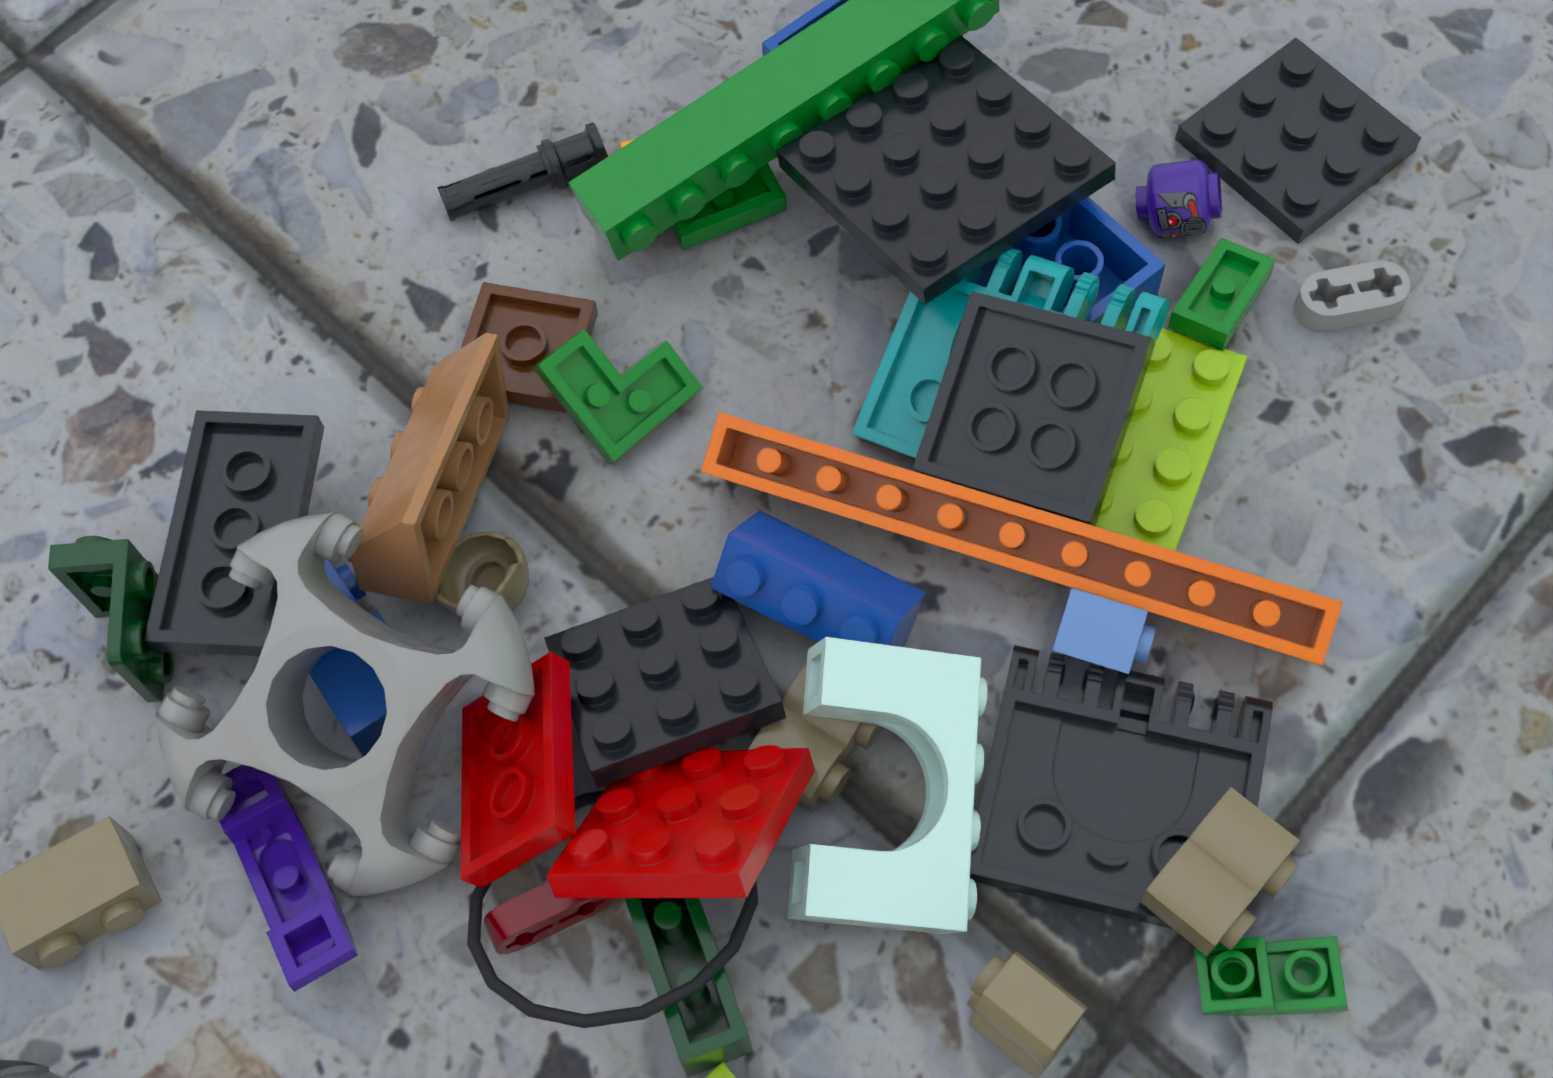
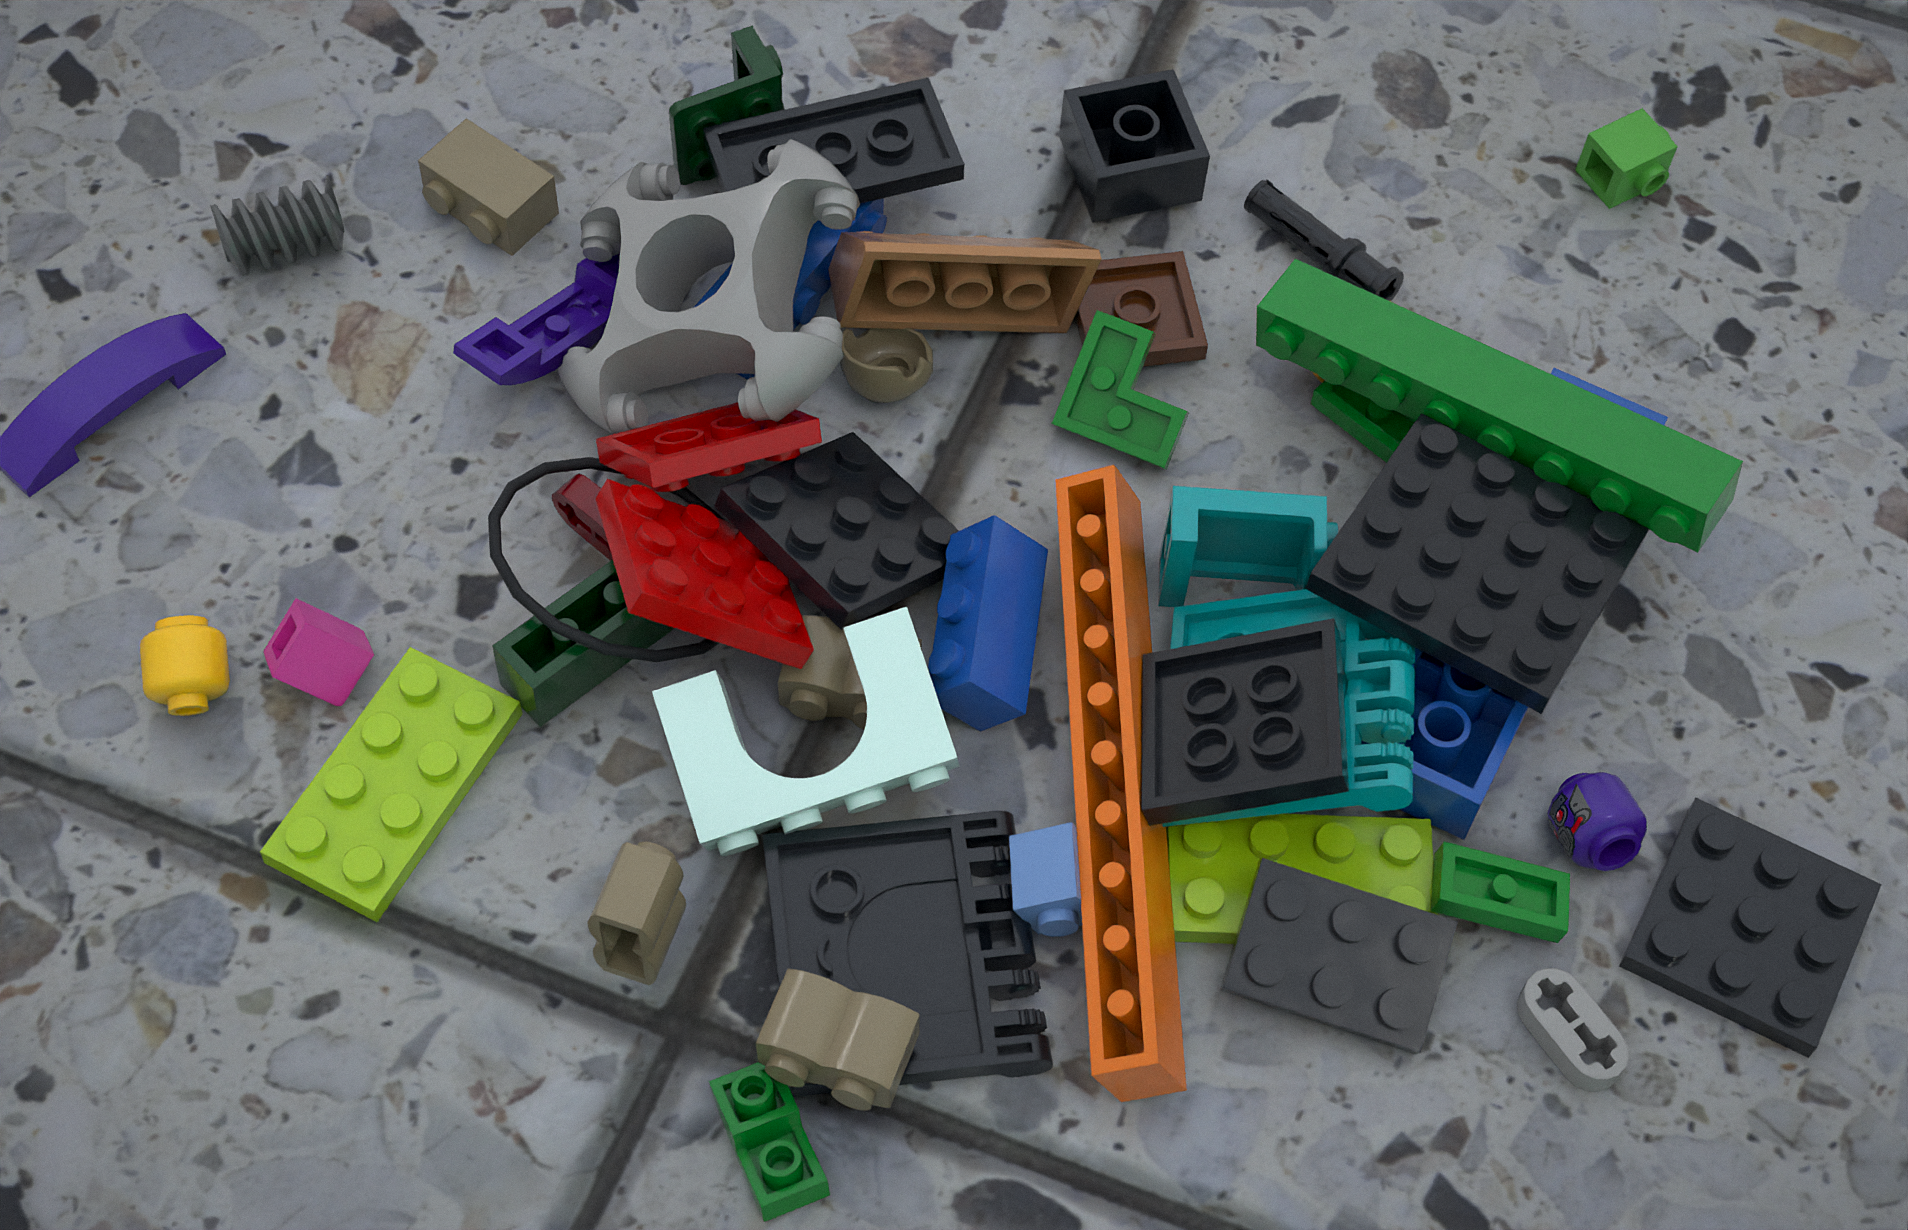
camera: 60 degrees right, 5 degrees down
(348, 275) = (1133, 145): none -> black brick
(809, 386) = (1240, 538): none -> teal panel
(1245, 435) = (1339, 956): none -> black plate

